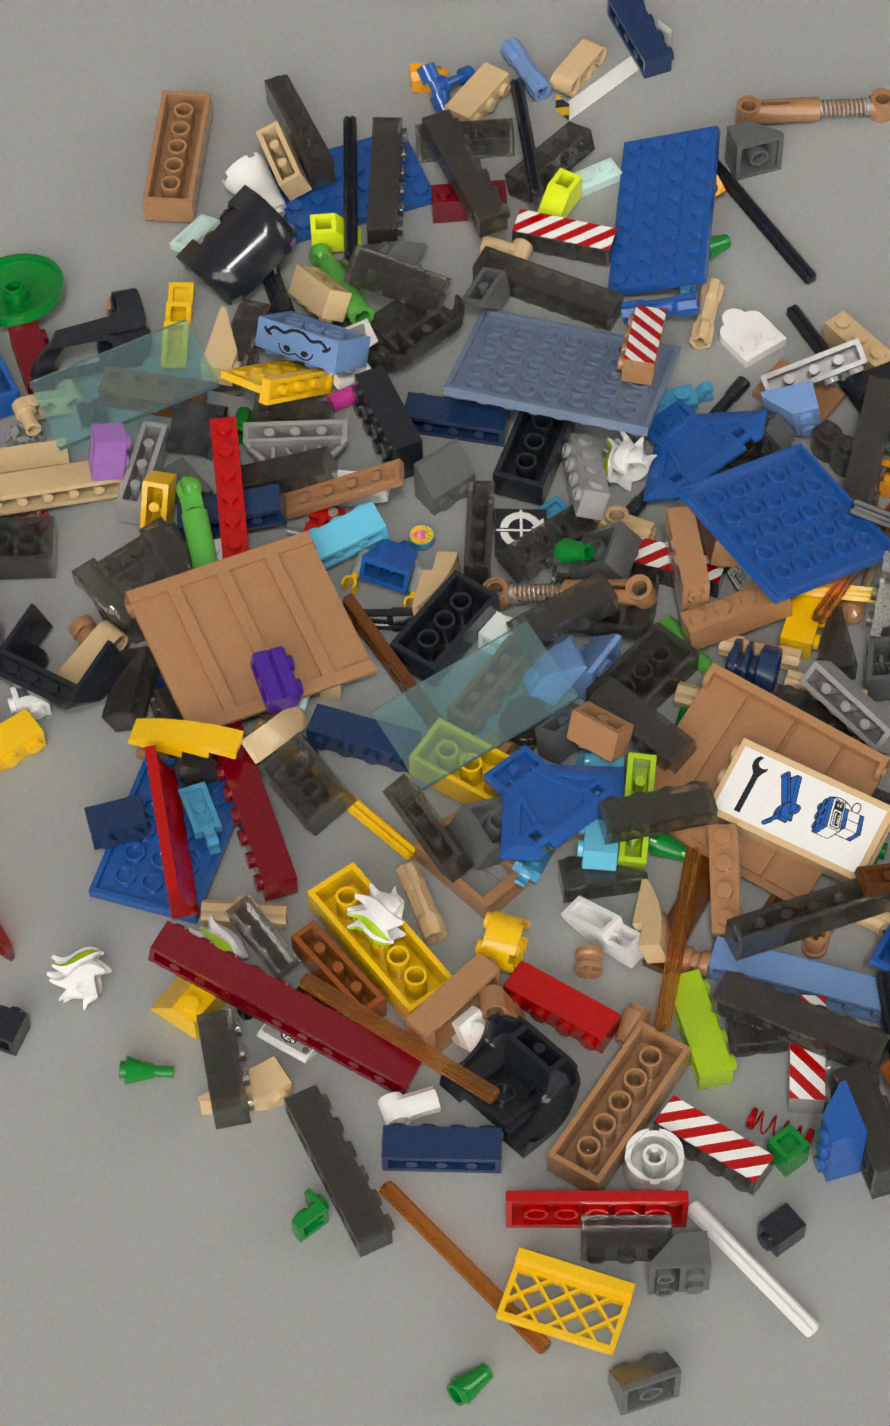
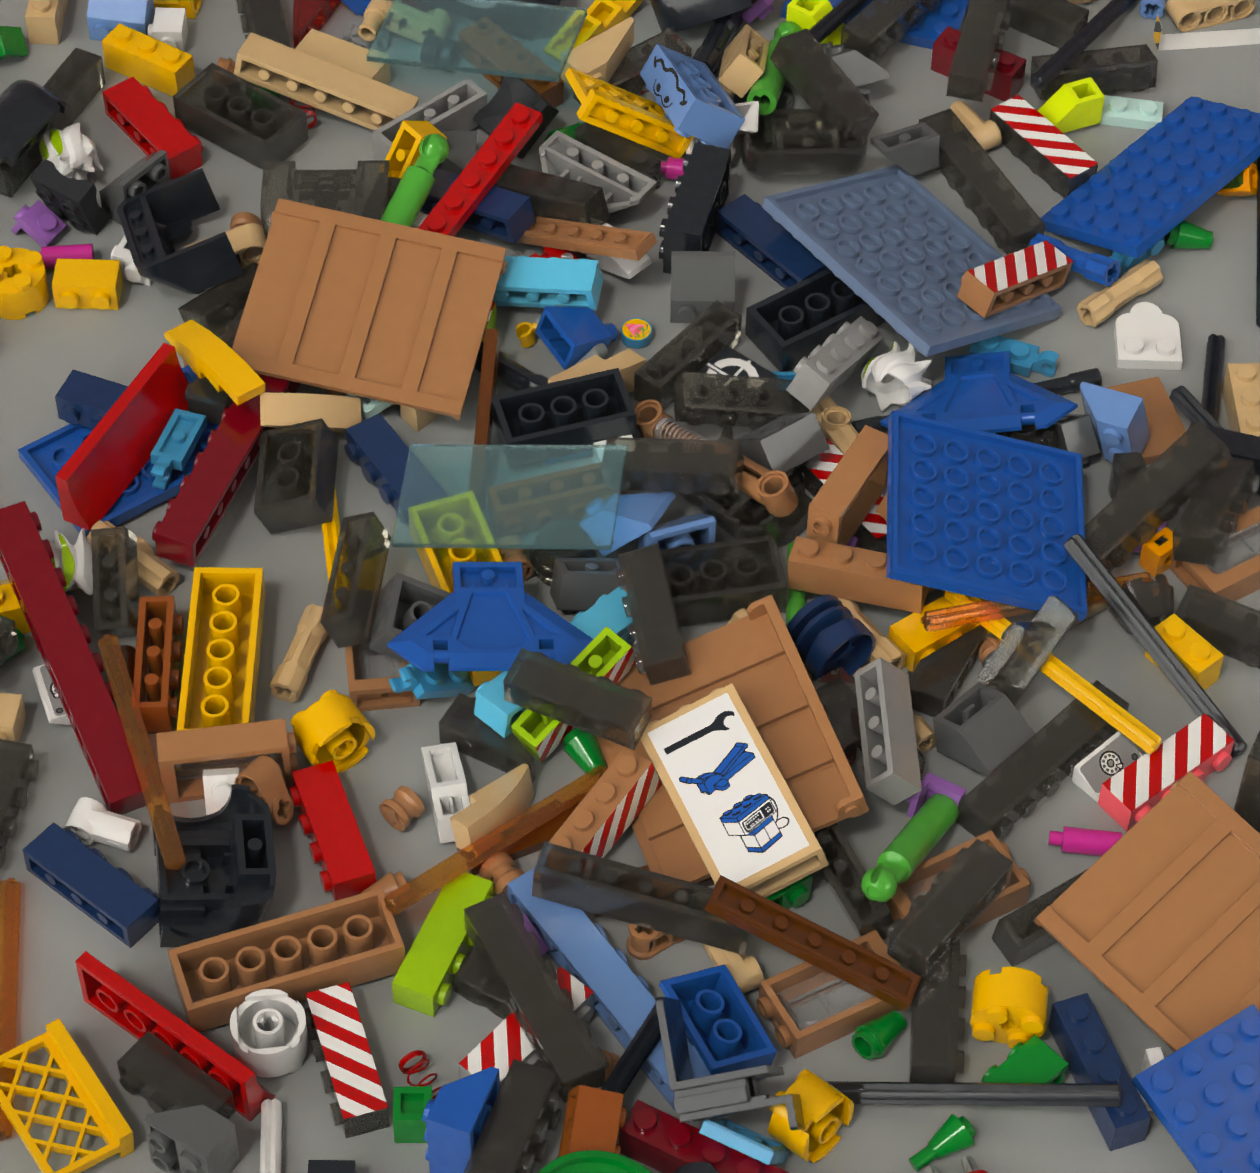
camera: 35 degrees right, 5 degrees down
(108, 451) = (399, 79): medium lavender brick -> none
(276, 679) = (345, 359): dark purple brick -> none
(378, 916) = (223, 625): white hair -> none
(573, 551) = (748, 418): green cone -> none
(599, 731) = (601, 592): medium nougat brick -> none
(820, 367) = (1175, 396): light grey brick -> none

